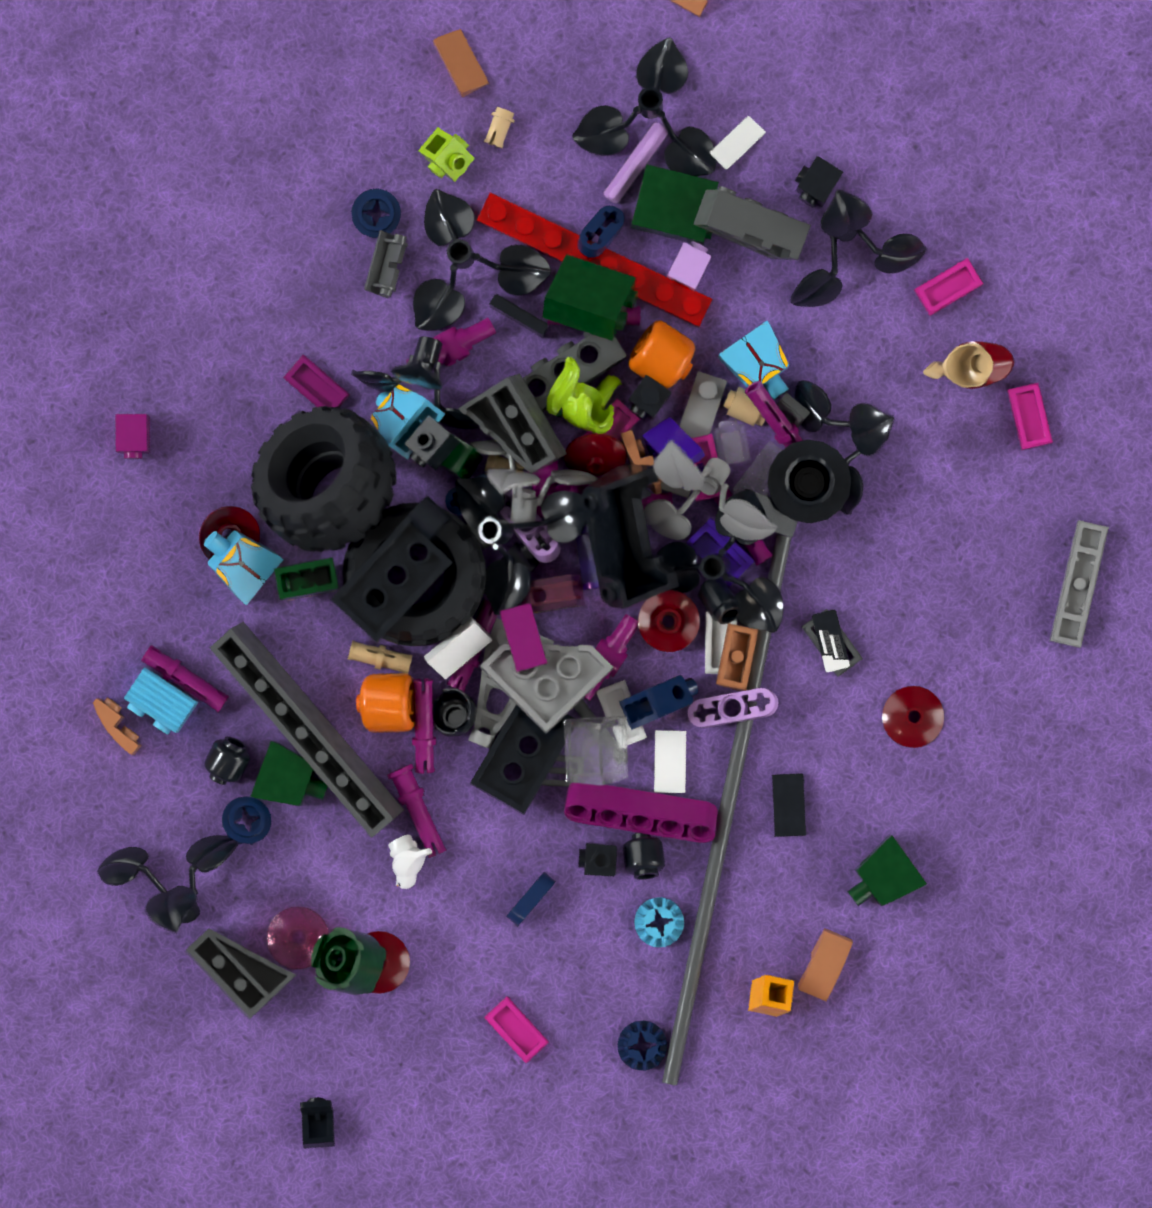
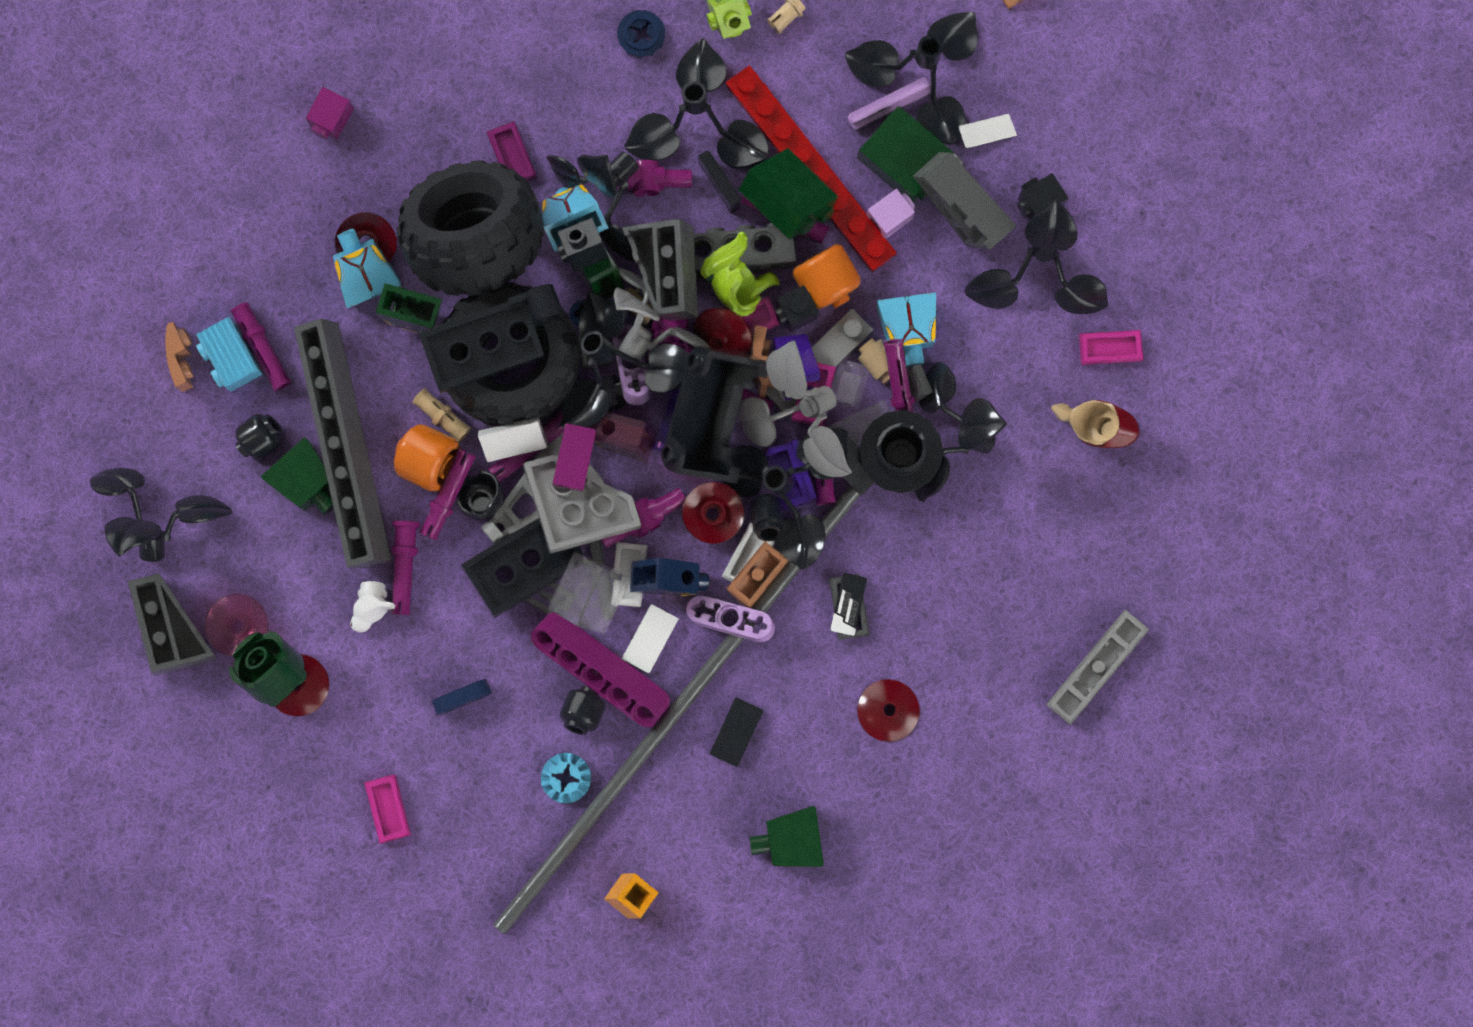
camera: 25 degrees right, 5 degrees down
(254, 810) = (259, 492): dark blue gear -> none
(317, 1123) = (164, 801): black bracket -> none
(383, 272) = (626, 79): dark grey hinge -> none
(595, 227) = (826, 139): dark blue beam -> none
(598, 859) = (539, 692): black bracket -> none
(630, 1036) = (506, 875): dark blue gear -> none
(825, 964) = (695, 893): nougat slope -> none
(1029, 416) = (1126, 496): dark pink tile -> none

